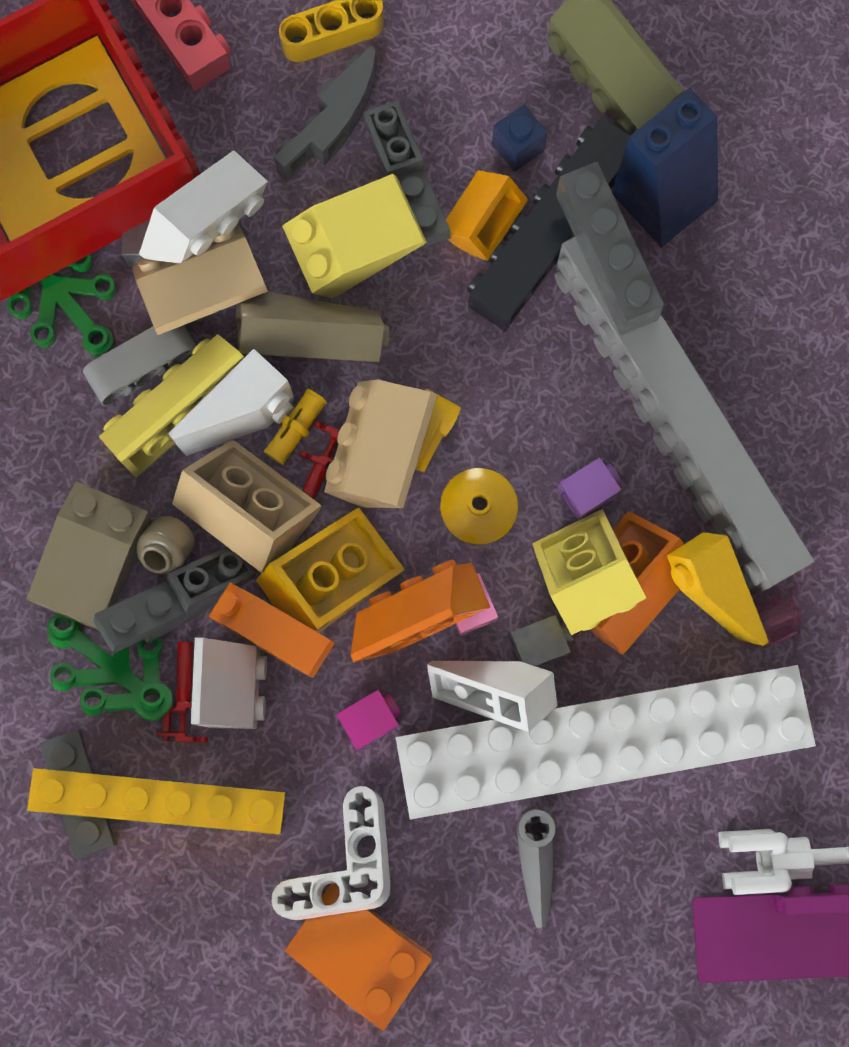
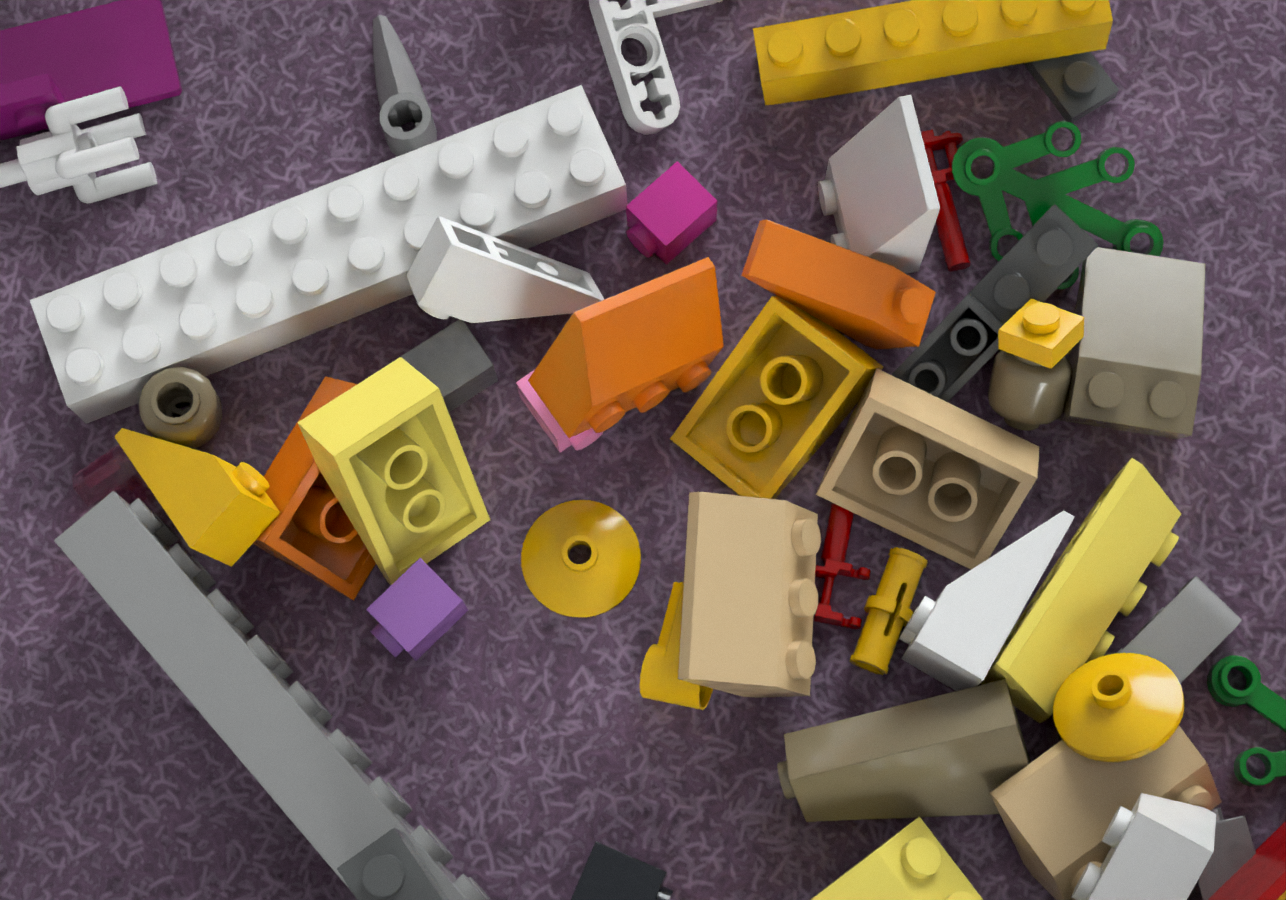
camera: 170 degrees right, 5 degrees down
(150, 564) = (1041, 333): none -> yellow plate
(172, 303) = (1123, 725): none -> yellow dish
(727, 640) = (168, 393): none -> dark tan head

